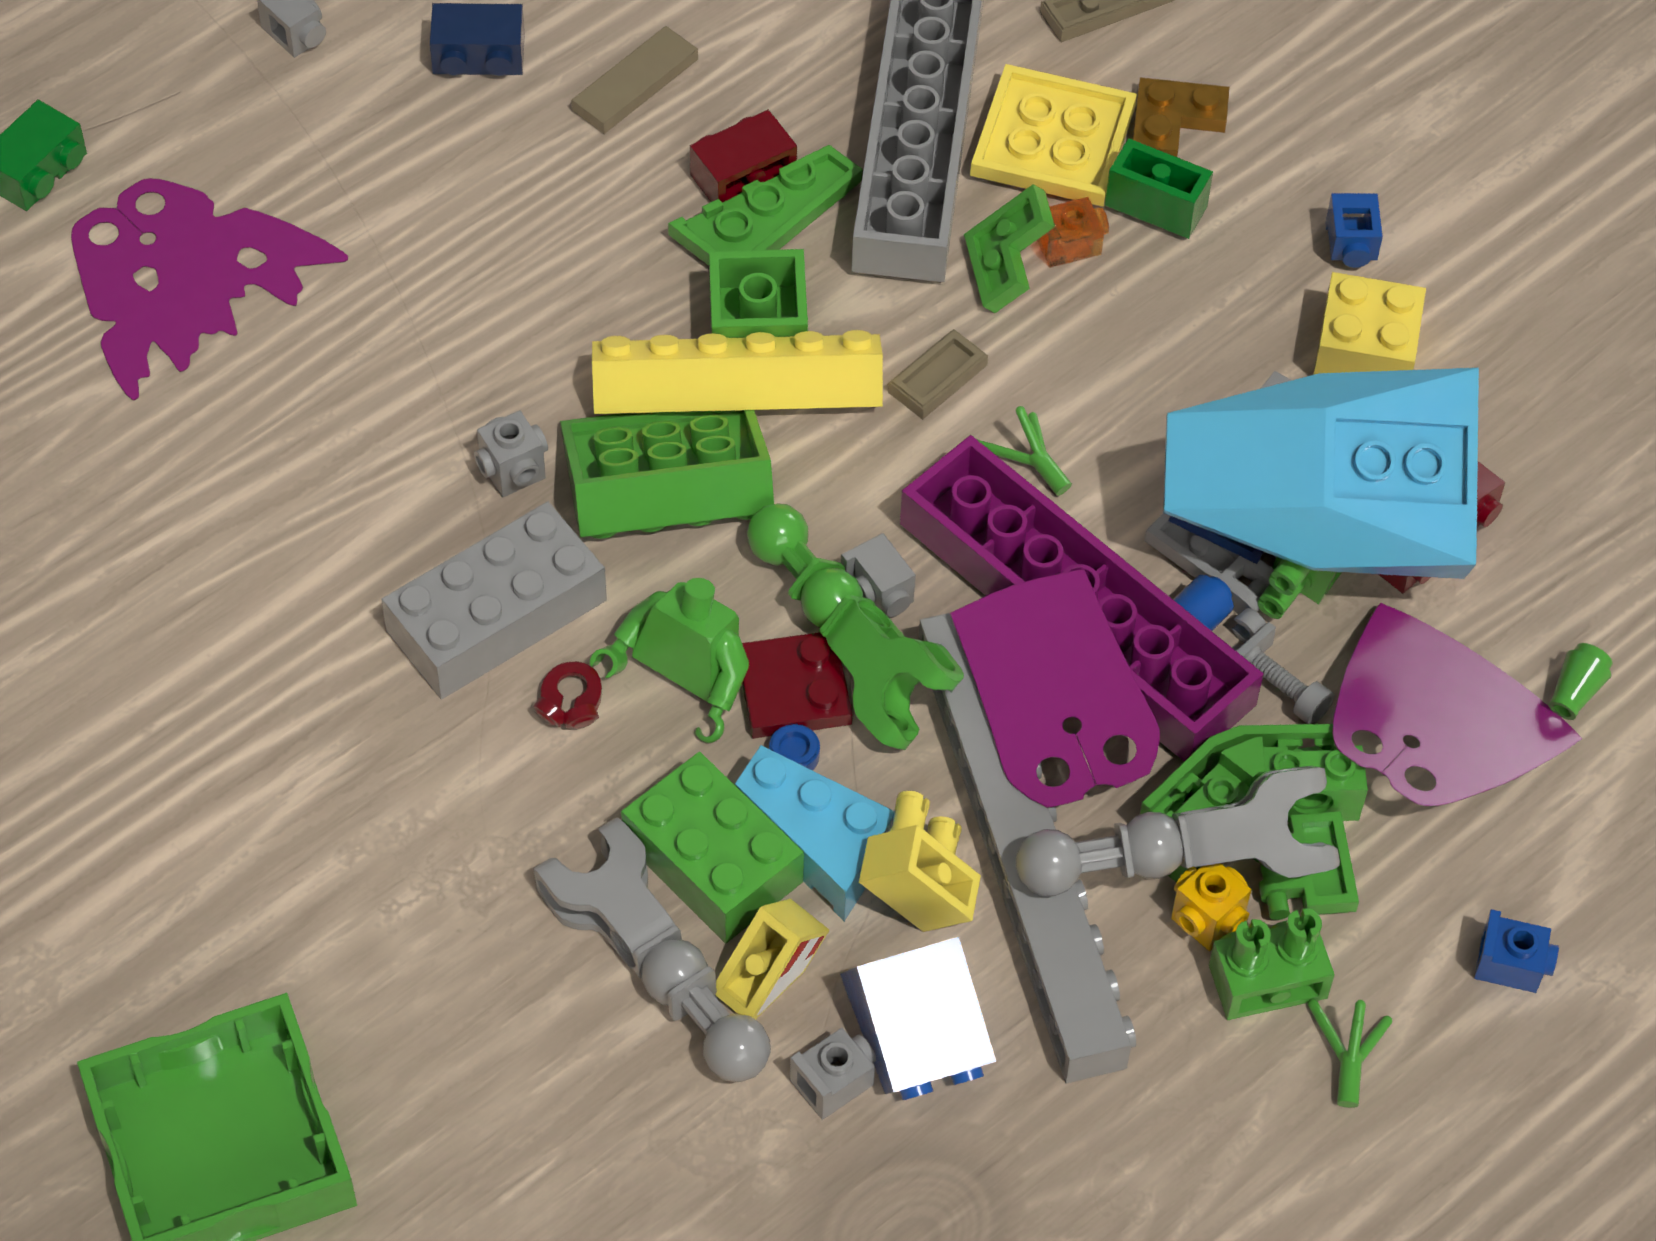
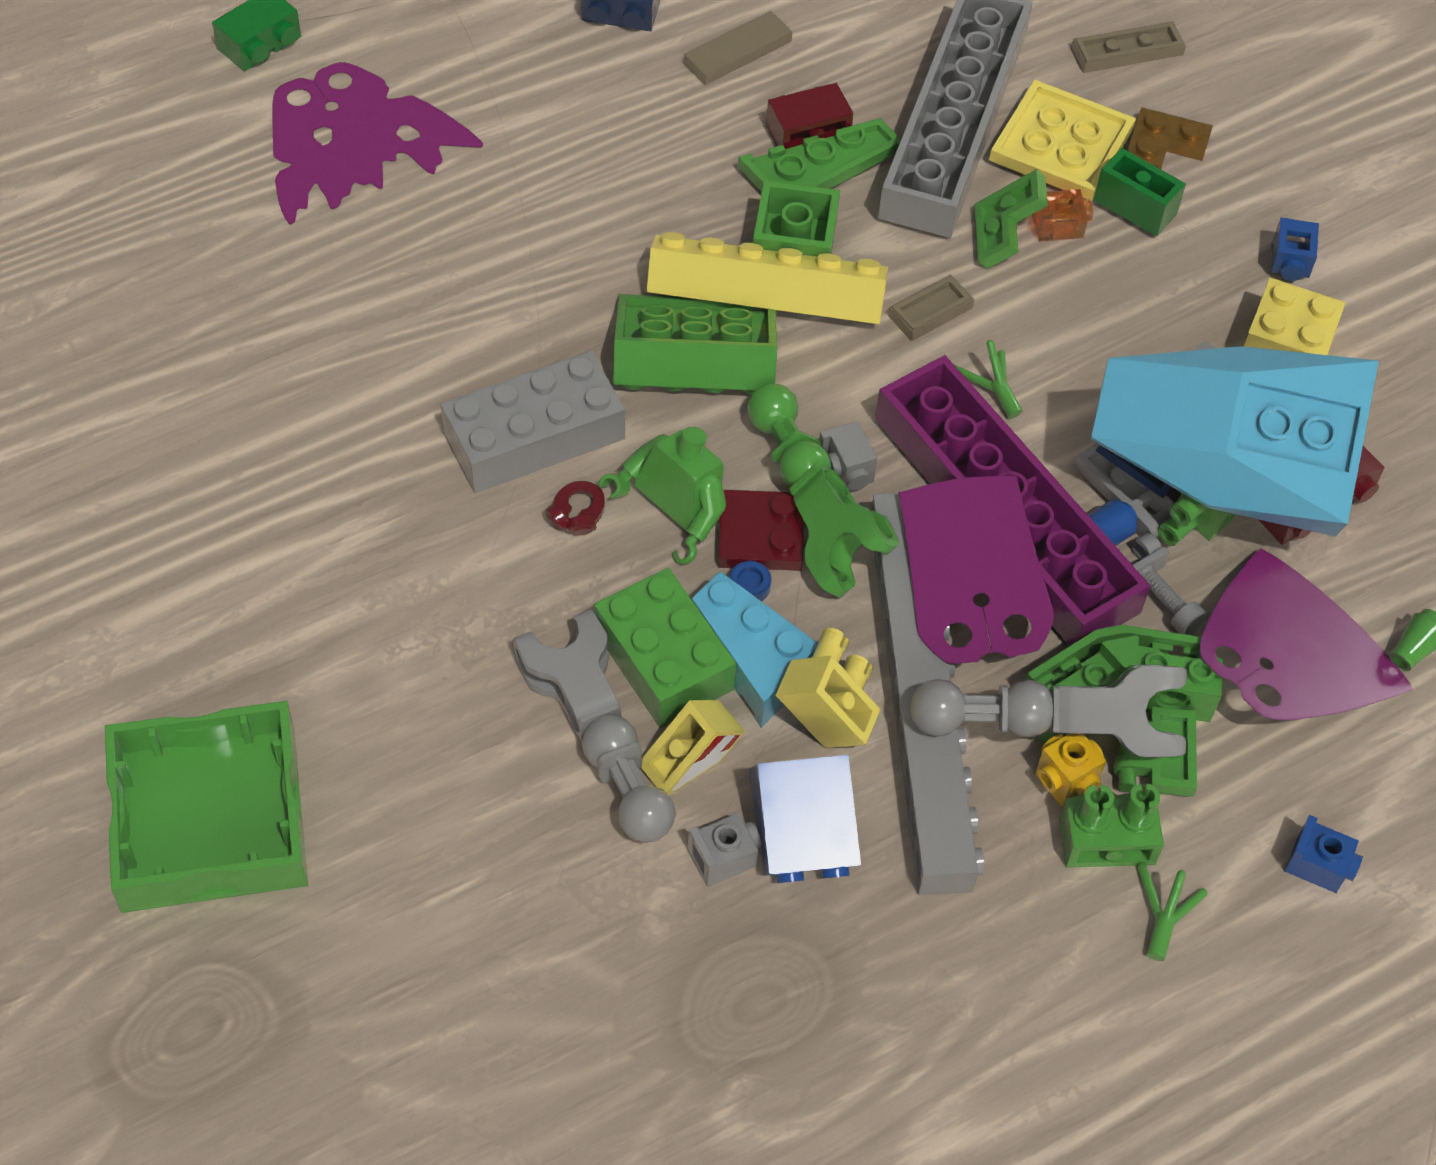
camera: 10 degrees right, 0 degrees up
(511, 453) = (573, 310): light grey brick -> none

